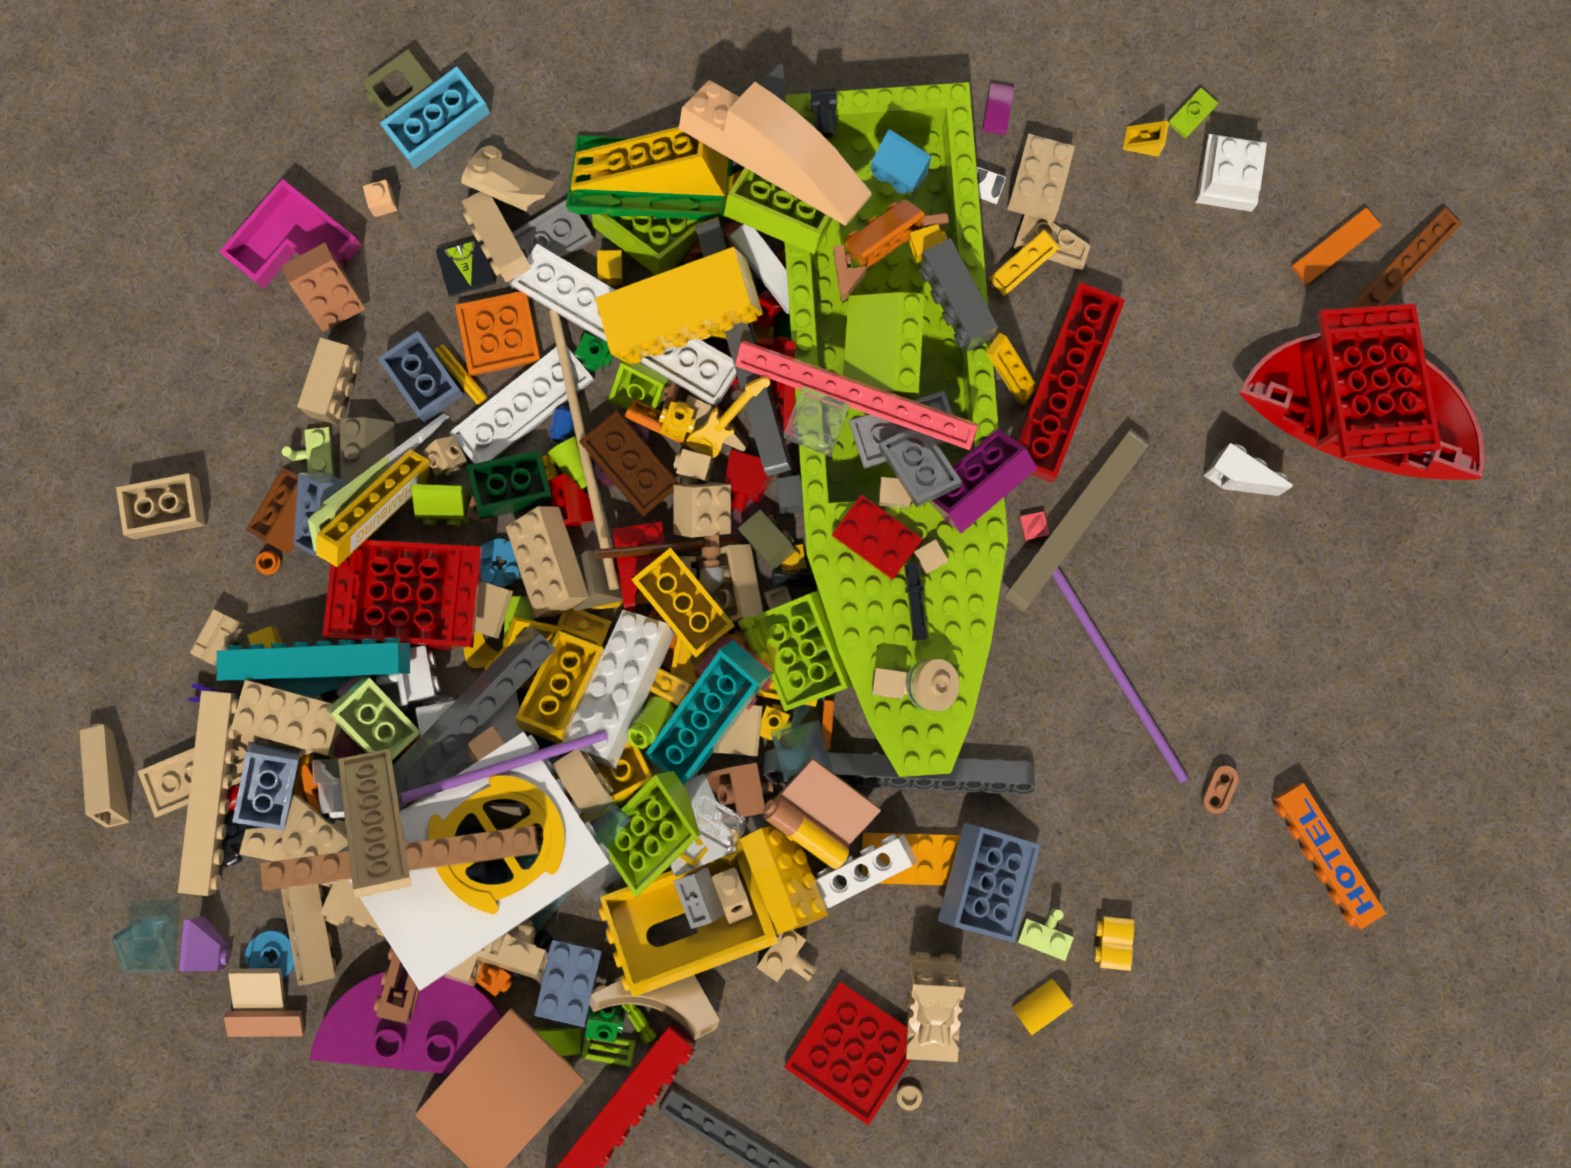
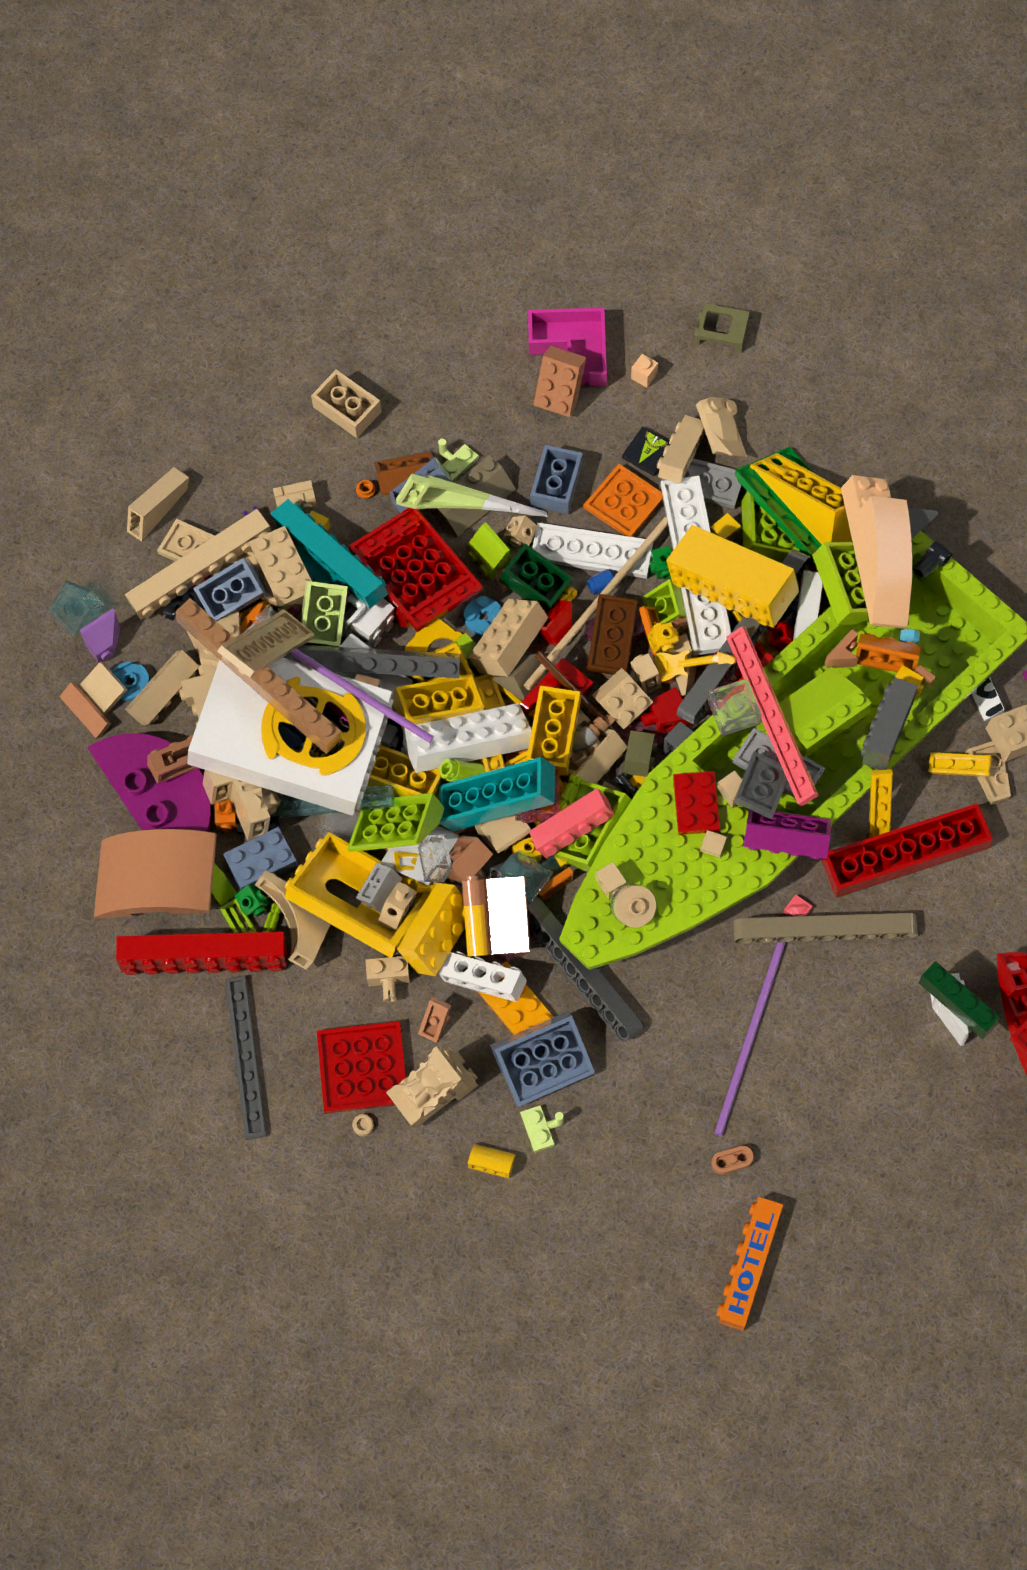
camera: 50 degrees right, 15 degrees down
(329, 381) = (506, 431): tan brick -> none
(371, 508) = (450, 510): yellow brick -> none
(435, 117) = (722, 360): medium azure brick -> none
(460, 374) = (579, 501): yellow axle -> none
(491, 608) = (449, 628): tan tile -> none
(569, 461) = (583, 599): lime plant -> none
(581, 780) = (391, 756): tan brick -> none
(793, 666) = (571, 823): none -> coral brick
(866, 948) = (435, 1019): none -> nougat slope
(883, 200) = (909, 635): none -> medium azure tile
(900, 164) = (940, 627): dark azure slope -> none
(916, 601) = (683, 850): black pin -> none
(1115, 943) = (572, 1172): yellow brick -> none
(1262, 467) = (959, 1000): none -> dark green brick

